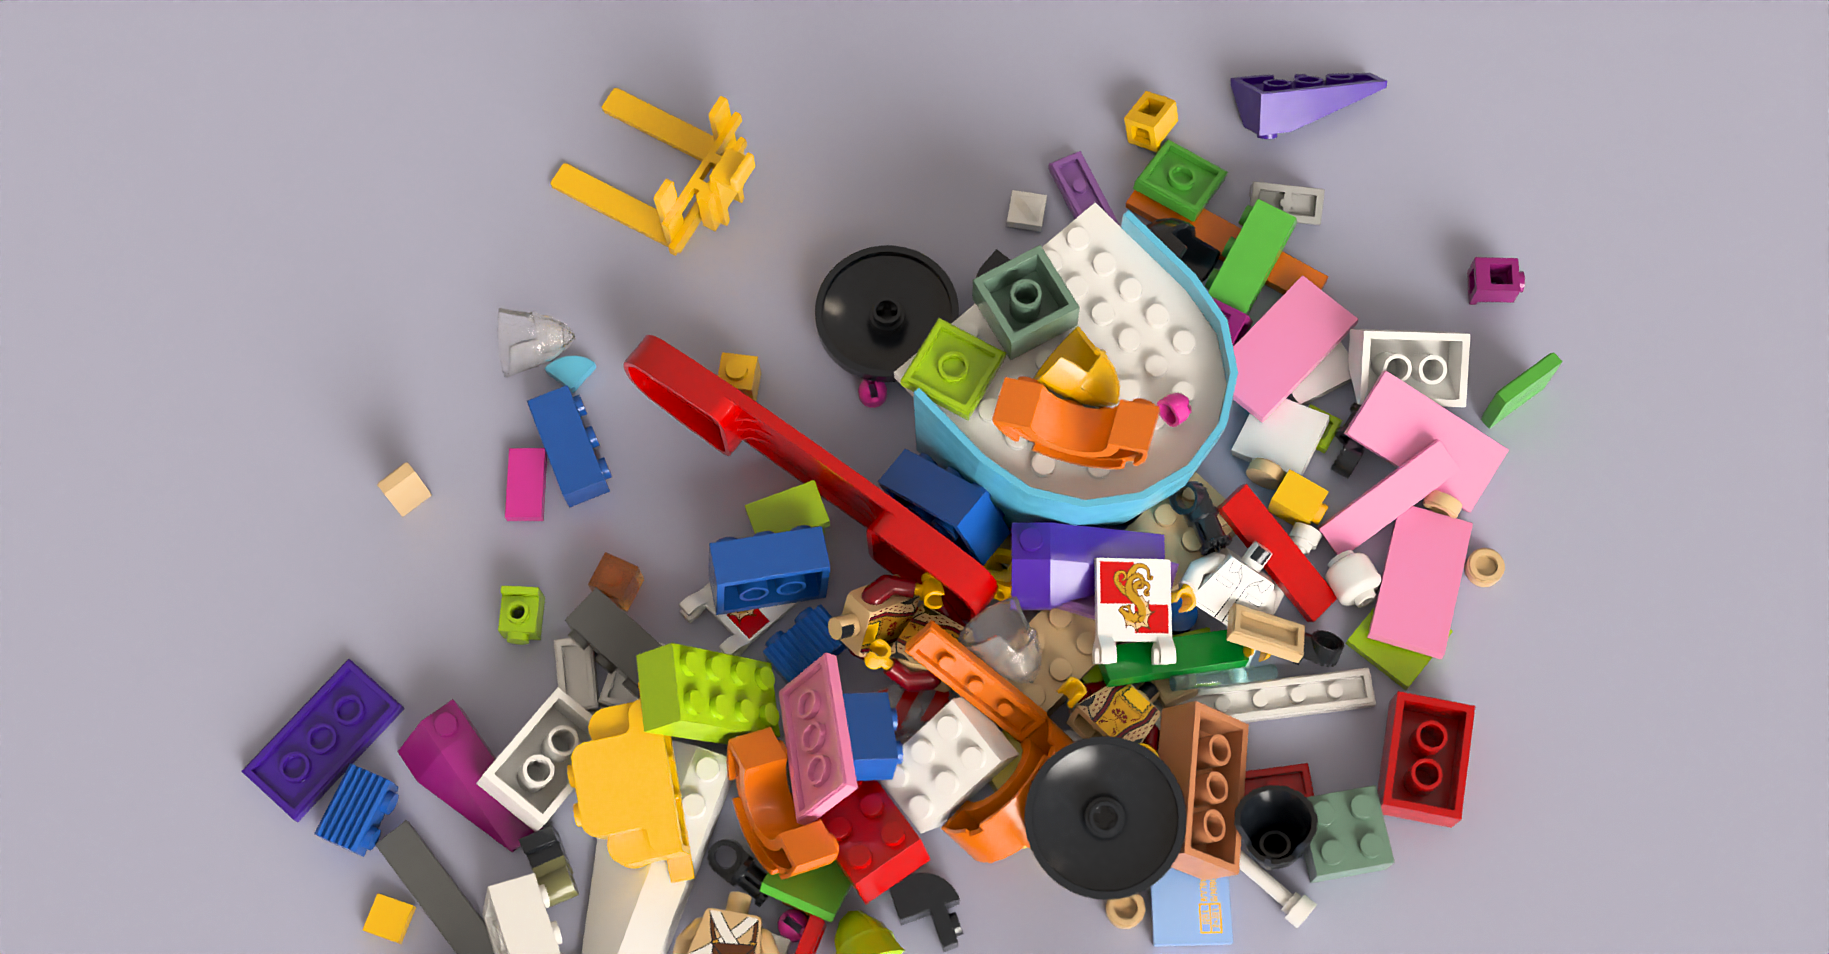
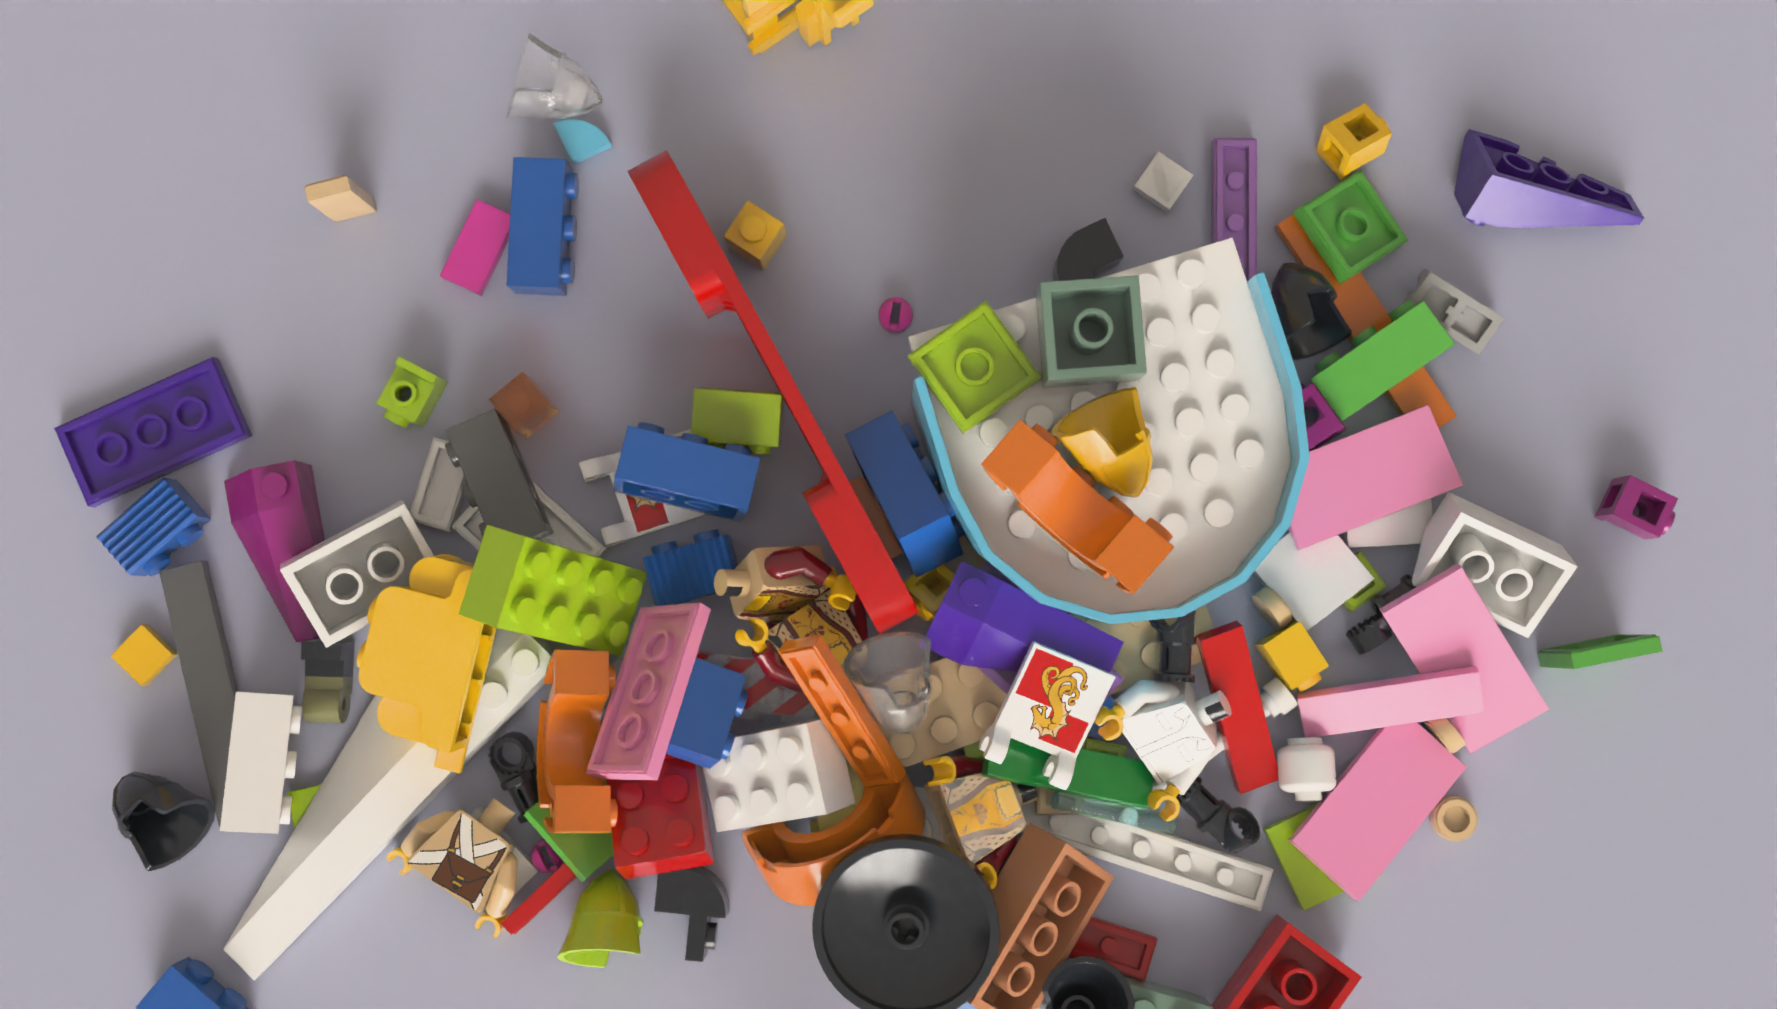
camera: 20 degrees right, 15 degrees up
(881, 309) = (949, 234): black dish -> none
(1174, 409) = (1198, 533): dark pink hinge -> none
(1265, 632) = (1180, 794): tan tile -> none

